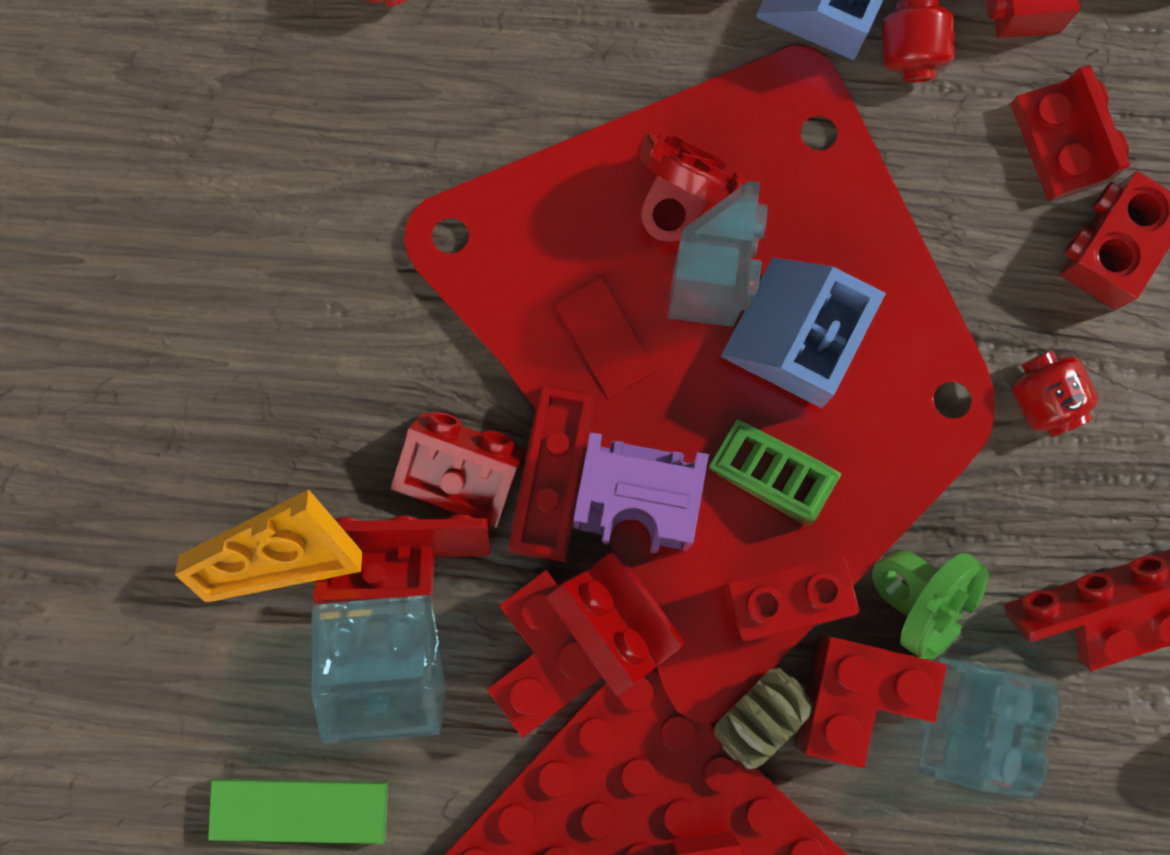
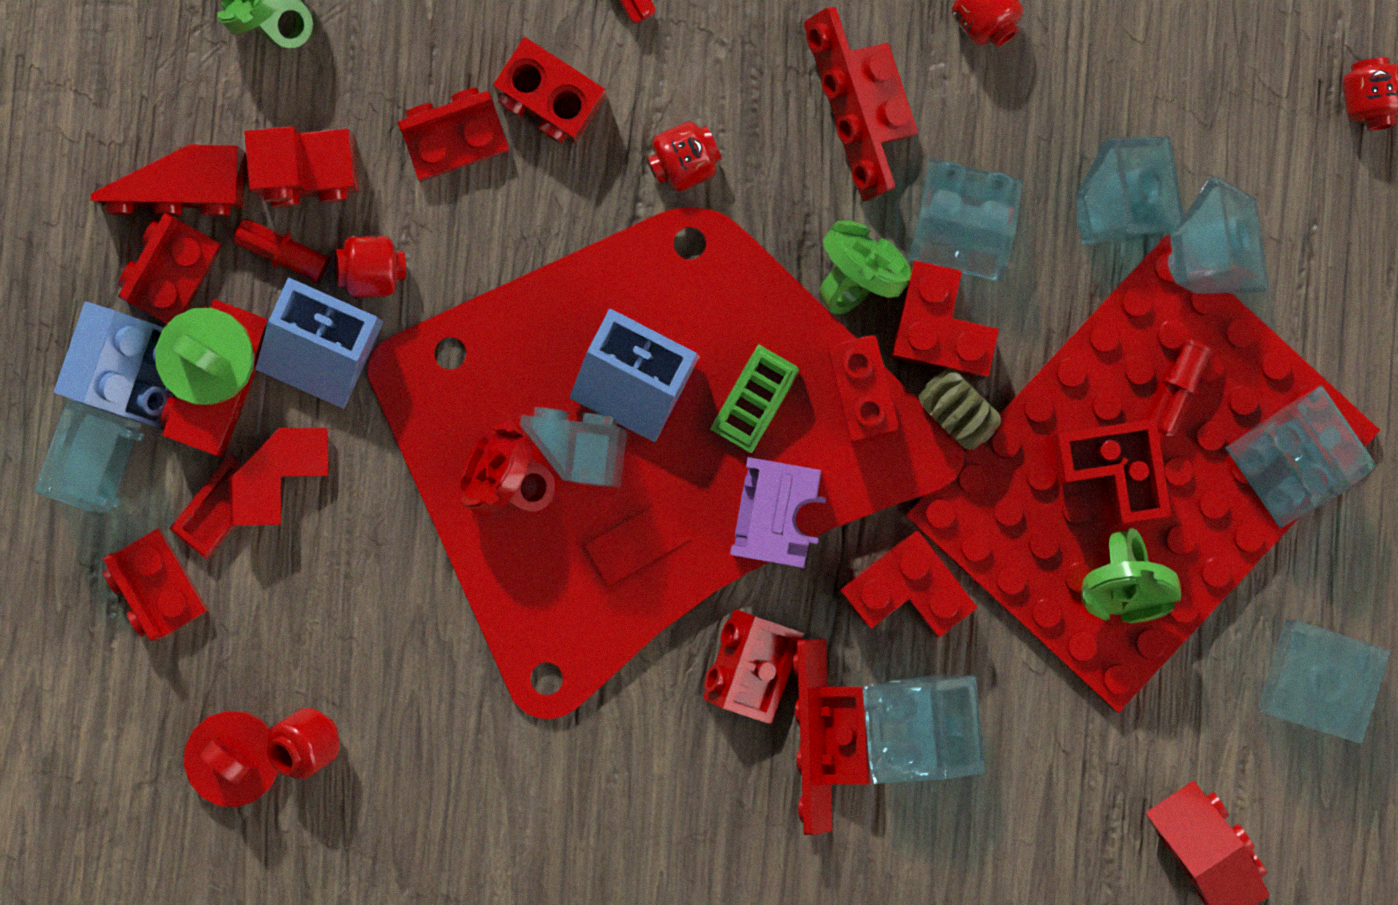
camera: 85 degrees left, 5 degrees up
(271, 551) = (828, 818): light orange wing -> none
(298, 810) = (1040, 794): bright green tile -> none
(552, 473) = (757, 585): red tile -> none
(616, 622) = (883, 531): red bracket -> none

